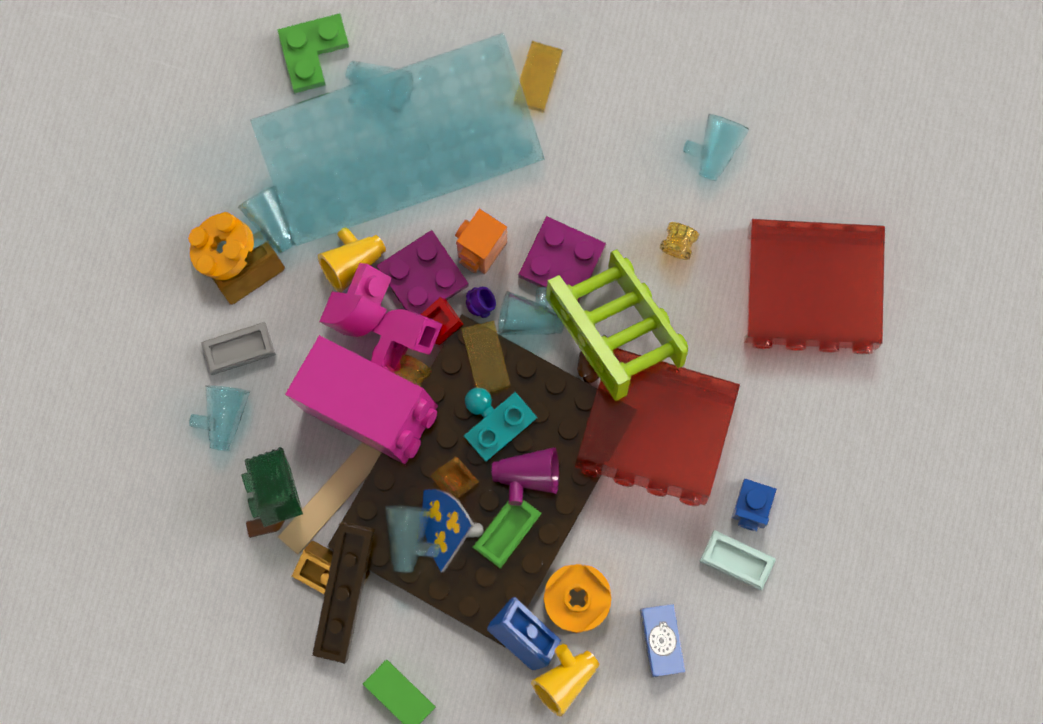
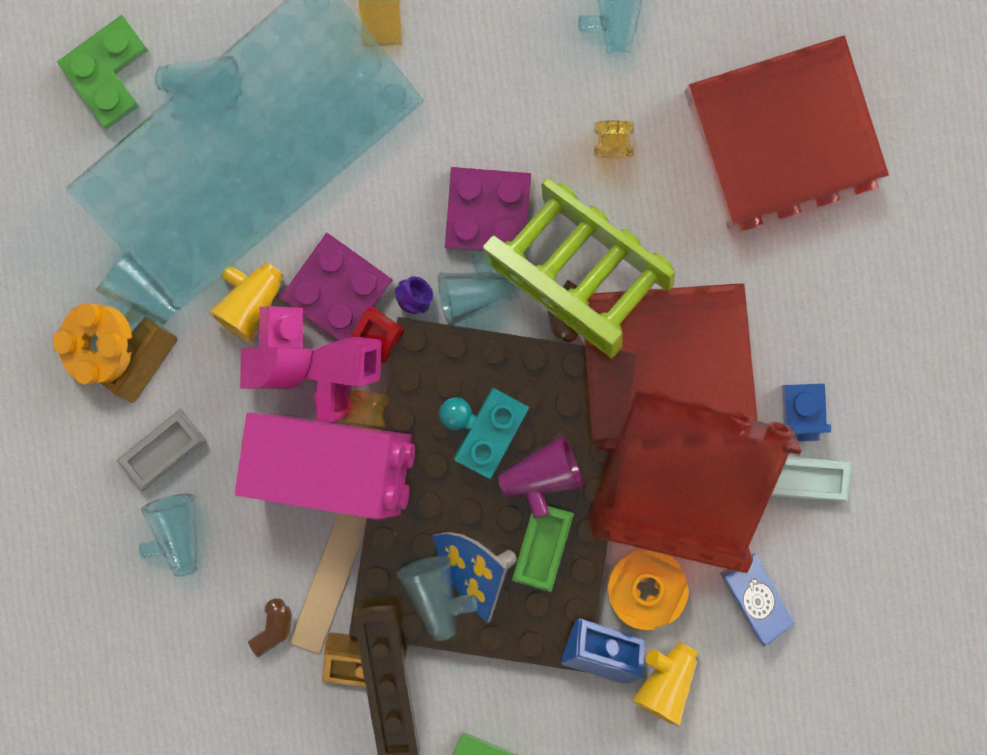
camera: 15 degrees left, 10 degrees up
(272, 487) = (262, 598): clear green brick -> none
(454, 478) = (462, 512): clear orange plate -> none
(480, 241) = (387, 228): orange brick -> none
(486, 356) = (444, 359): clear yellow tile -> none
(643, 518) = (690, 480): none -> clear red panel

